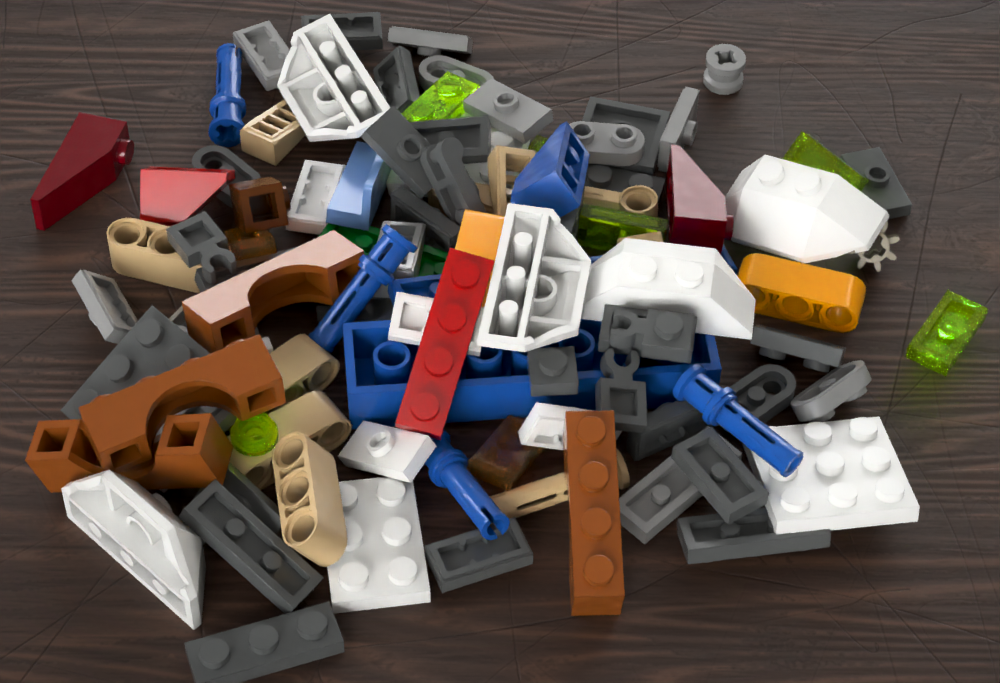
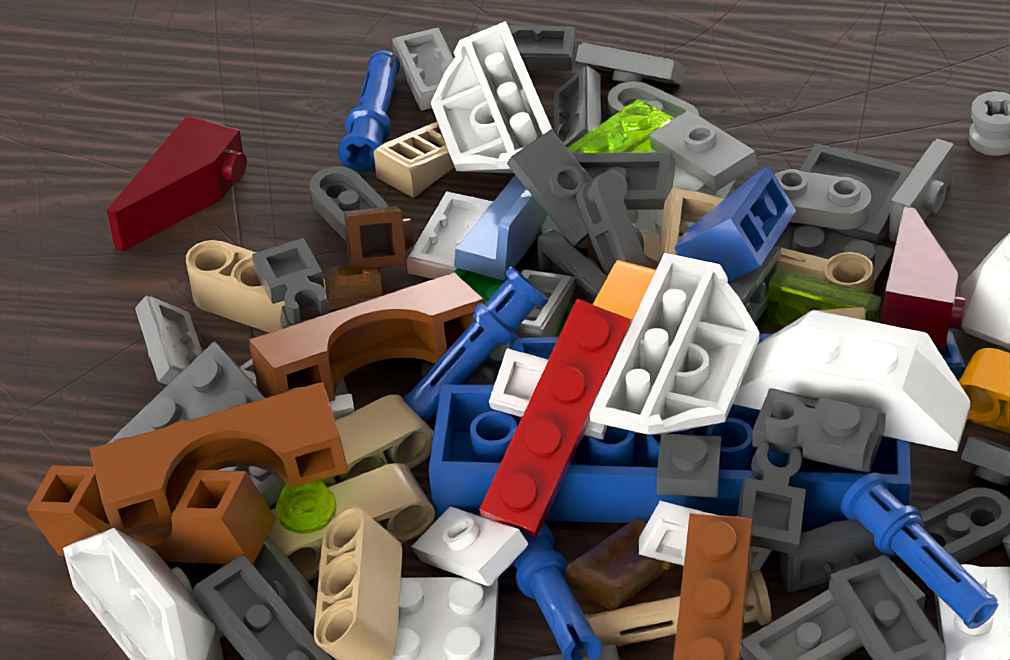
camera: 15 degrees right, 5 degrees down
(178, 193) = (278, 214): slope -> none

